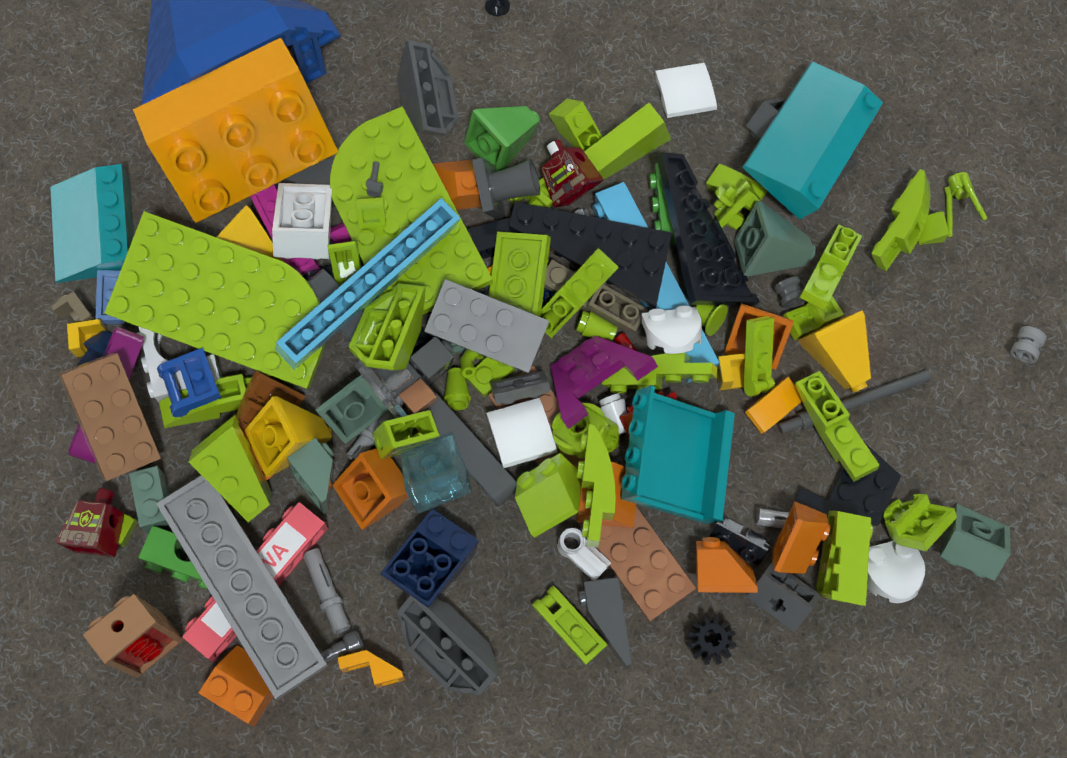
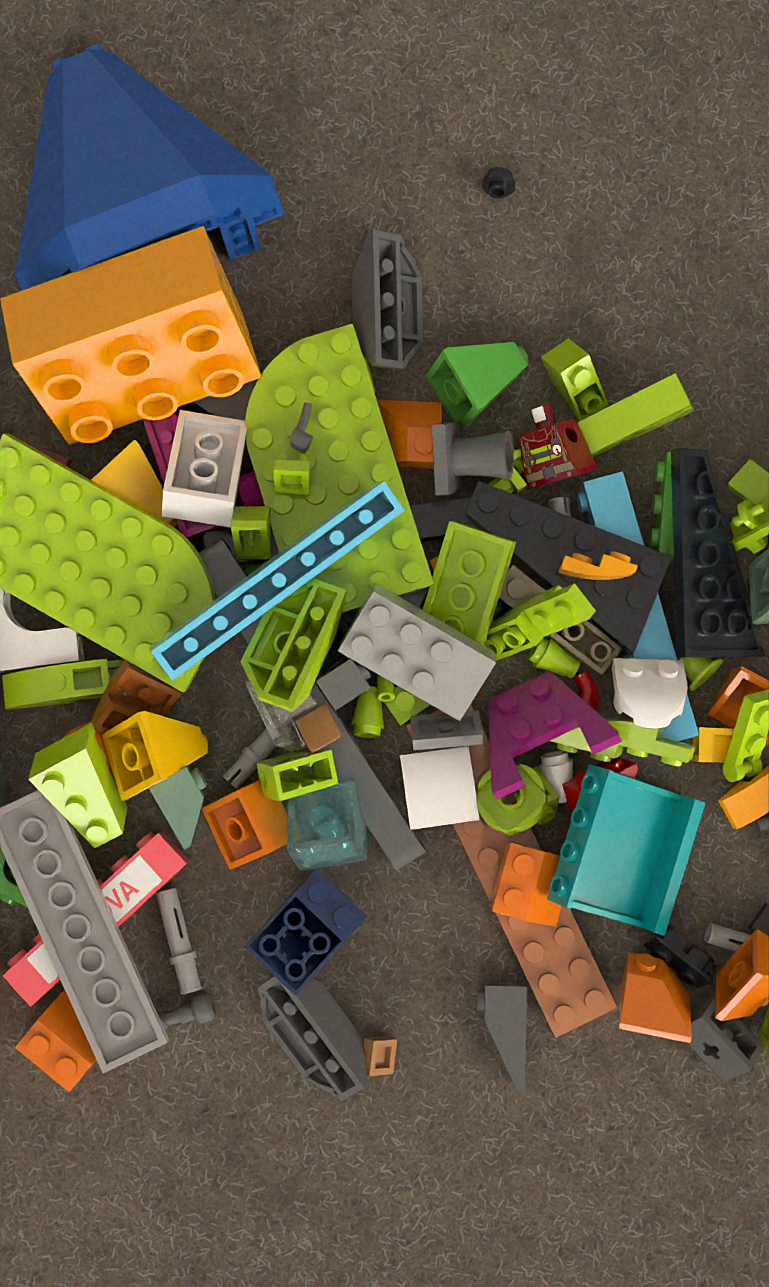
camera: 10 degrees right, 15 degrees up
(197, 379) = (50, 660): blue plate -> none
(352, 409) = (230, 728): sand green slope -> none
(382, 672) = (232, 1048): light orange slope -> none
(507, 657) = (379, 1055): none -> medium nougat plate
(548, 494) = (460, 876): lime slope -> none
(570, 626) = (460, 1029): lime plate -> none
(584, 557) = (490, 947): white piece -> none
(598, 475) = (524, 873): lime slope -> none
(627, 242) = (608, 567): none -> light orange slope
(686, 90) = (726, 346): white slope -> none
(707, 648) = (631, 1085): black gear -> none

